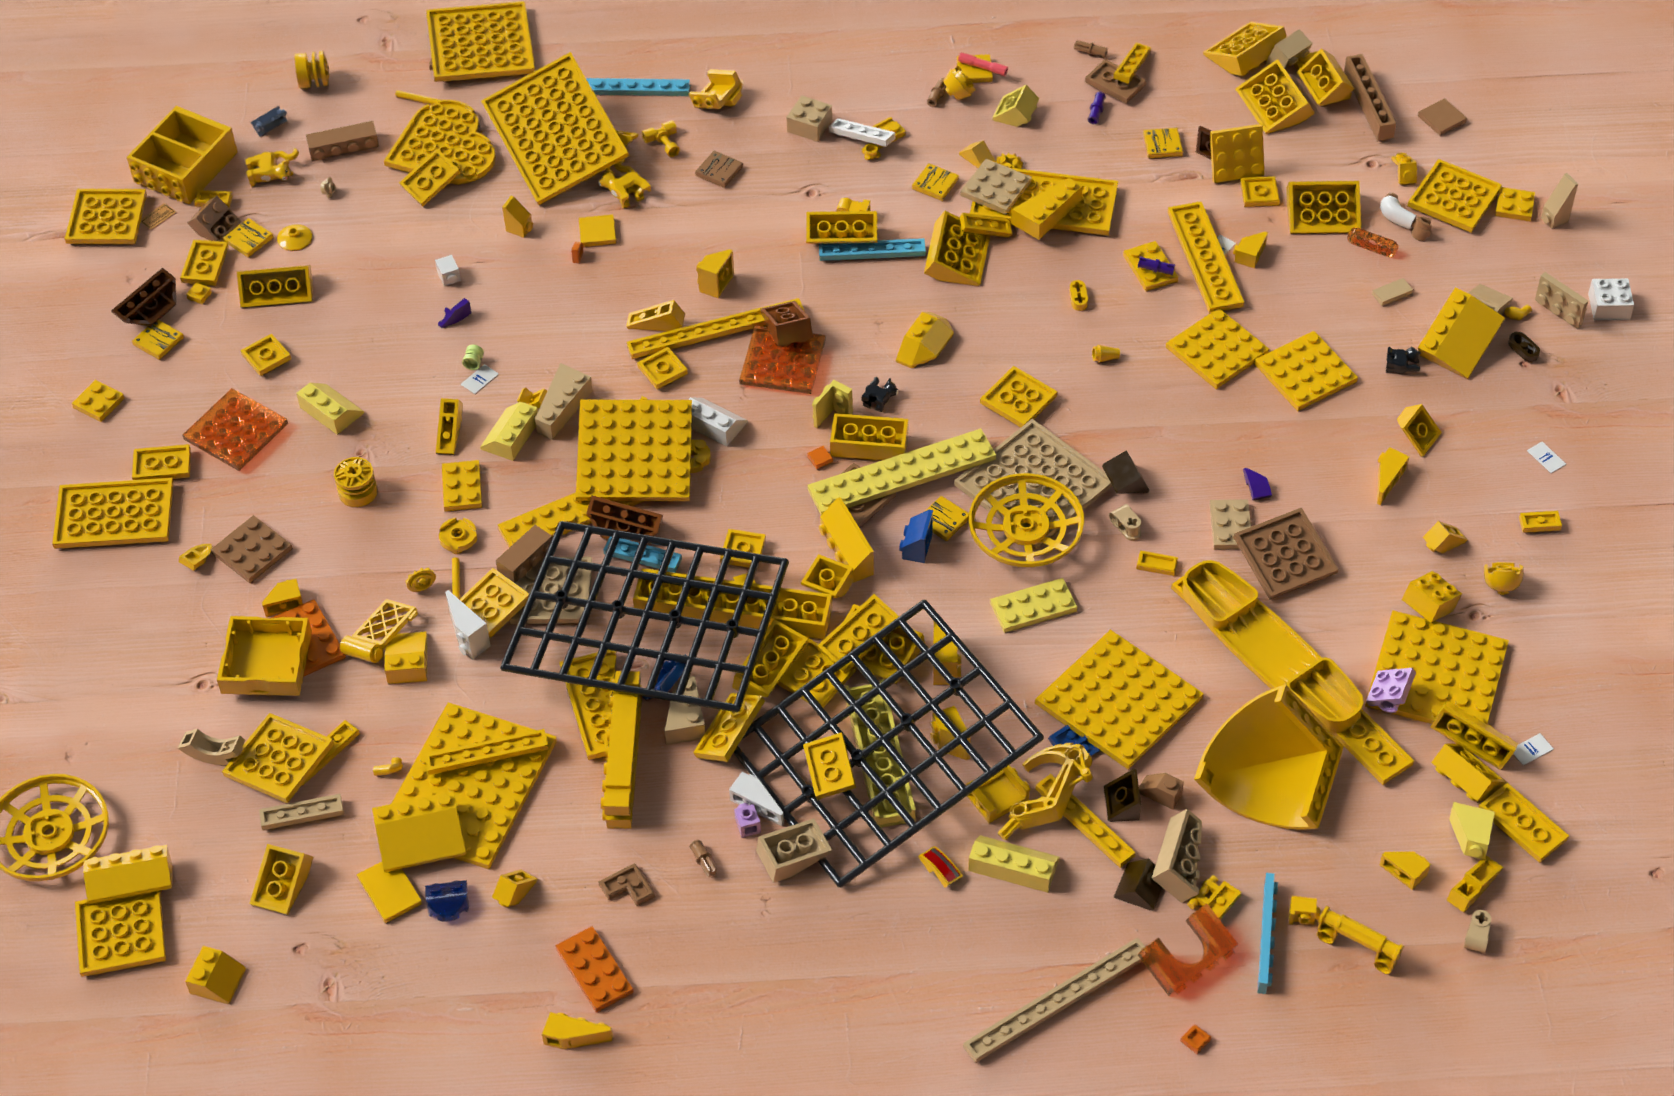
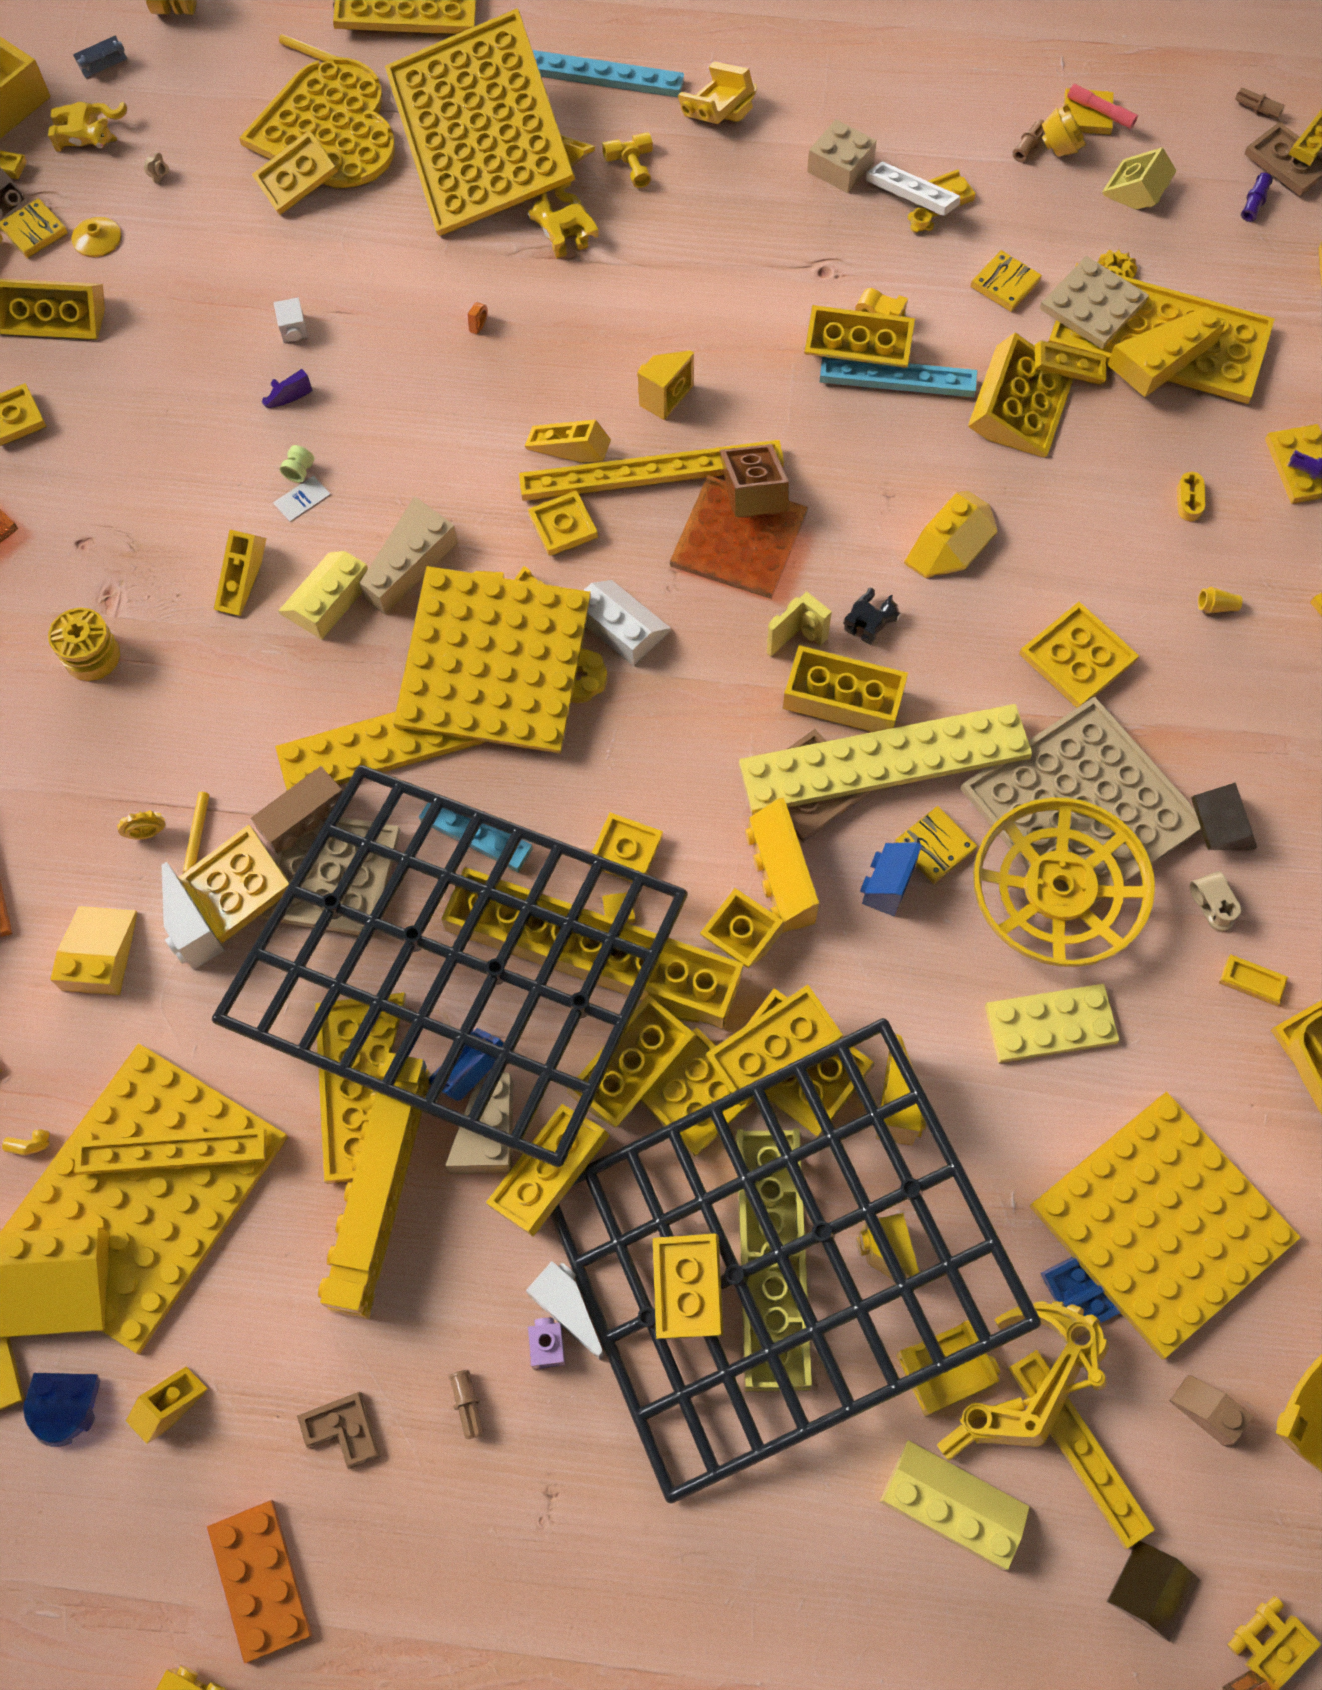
camera: 10 degrees right, 15 degrees up
(328, 406) = (80, 510): light yellow slope -> none
(342, 140) = (190, 99): medium nougat brick -> none
(366, 646) = (40, 932): yellow piece -> none
(461, 485) = (238, 671): yellow plate -> none
(461, 543) = (221, 767): yellow plate -> none
(516, 217) = (401, 252): yellow slope -> none
(534, 399) = (364, 546): yellow bracket -> none
(597, 230) = (512, 287): yellow tile -> none
(622, 517) = (456, 771): dark orange wedge -> none
(719, 169) = (701, 216): medium nougat tile -> none
(792, 849) = (607, 1421): tan slope -> none
(820, 457) = (766, 708): orange tile -> none
(941, 865) = (836, 1493): slope -> none
(977, 153) = (1073, 245): yellow slope -> none
(1123, 798) = (1148, 1417): dark brown slope -> none
(1179, 856) = (1228, 1557): tan wedge -> none

